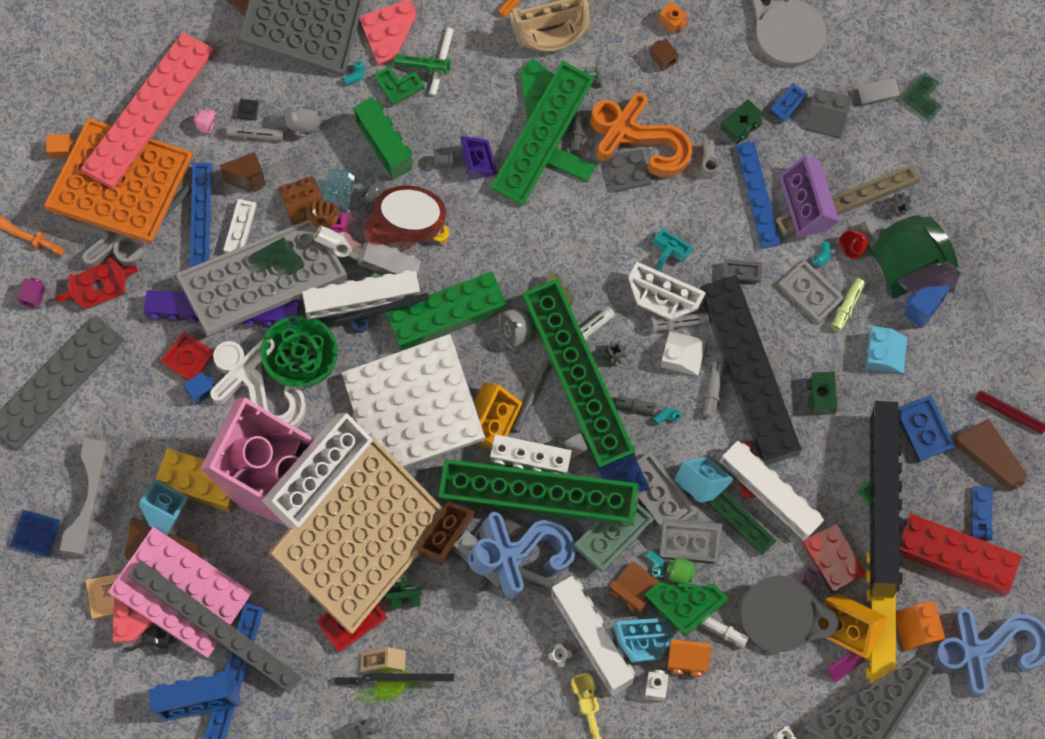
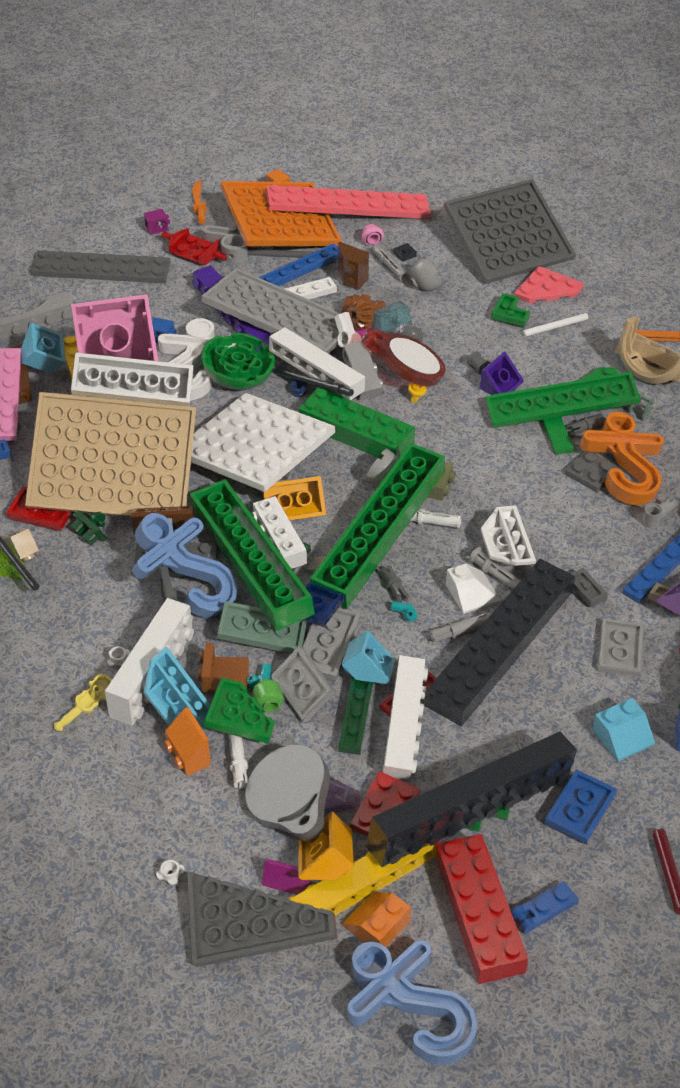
camera: 55 degrees right, 25 degrees down
(187, 356) = (181, 312): red plate -> none
(281, 253) = (305, 310): clear green plate -> none
(357, 74) = (492, 289): teal arm -> none
(383, 138) = (457, 318): green brick -> none
(430, 64) = (544, 315): green pin -> none
(531, 396) = (327, 517): dark grey bar -> none
(620, 354) = (426, 543): dark grey gear -> none
(656, 685) = (142, 738): white brick -> none
(671, 246) = (558, 529): teal plate -> none
(824, 256) = (662, 637): teal arm -> none
(826, 382) = (534, 705): dark green brick -> none
(844, 312) = (613, 680): yellowish green pin -> none
(992, 454) = (610, 875): reddish brown slope -> none

